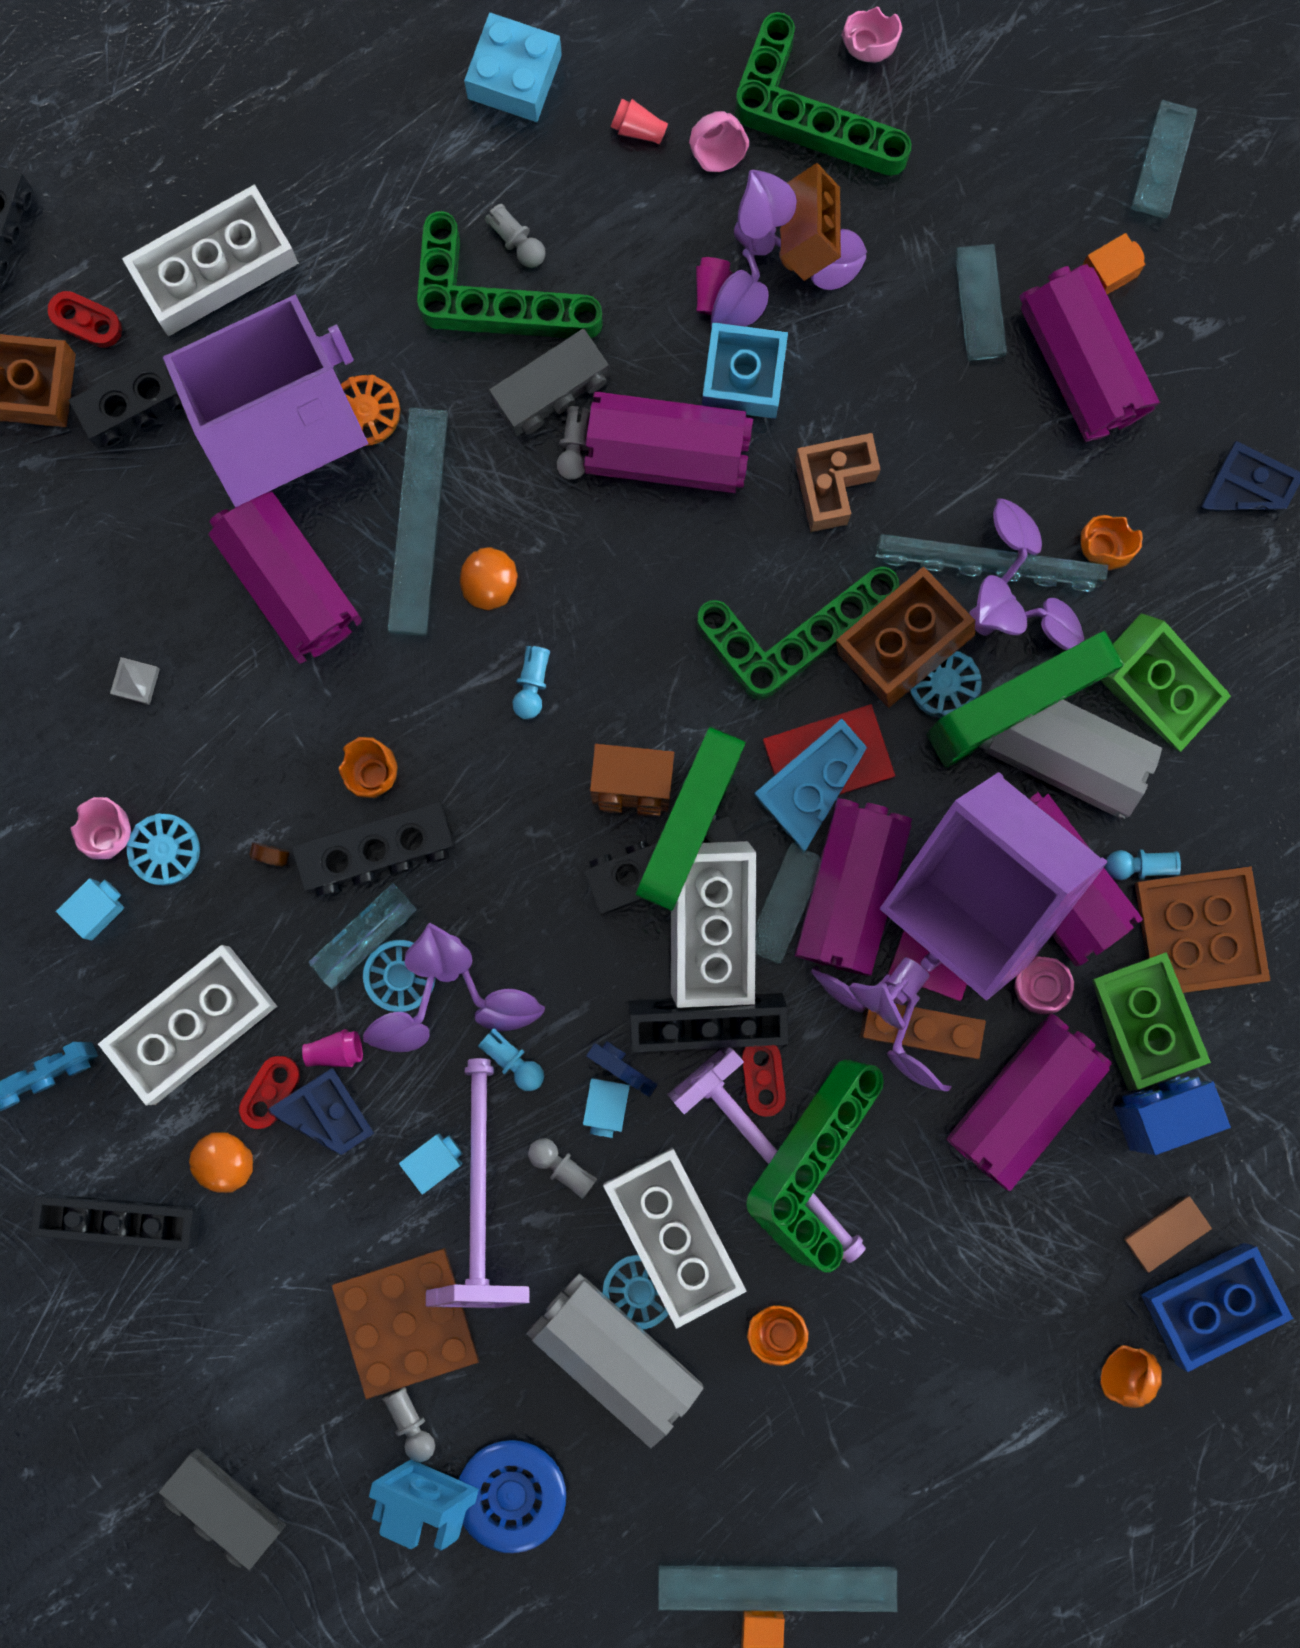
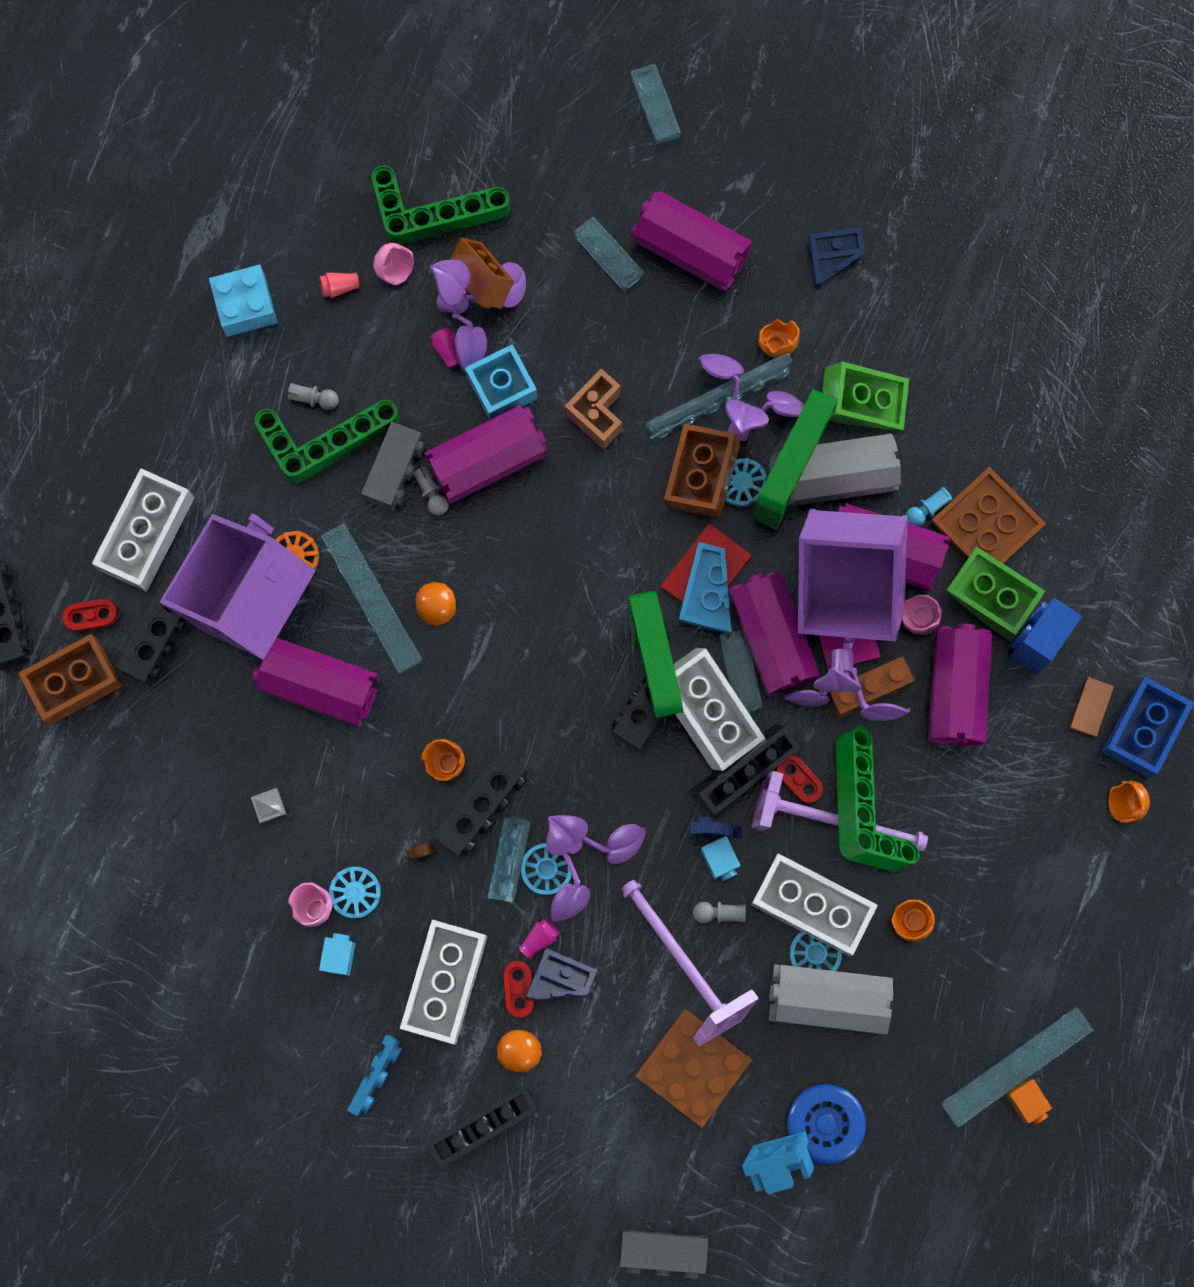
camera: 30 degrees left, 5 degrees down
(418, 1444) = (751, 1132): light grey pin -> none
(432, 1162) = (643, 962): medium azure brick -> none
(527, 702) = (509, 658): medium azure pin -> none
(527, 1074) = (662, 873): medium azure pin -> none
(631, 779) = (604, 658): dark orange brick -> none
(799, 639) = (642, 515): green beam -> none
(871, 35) = (439, 144): bright pink hair -> none
(1117, 262) = (670, 179): orange brick -> none

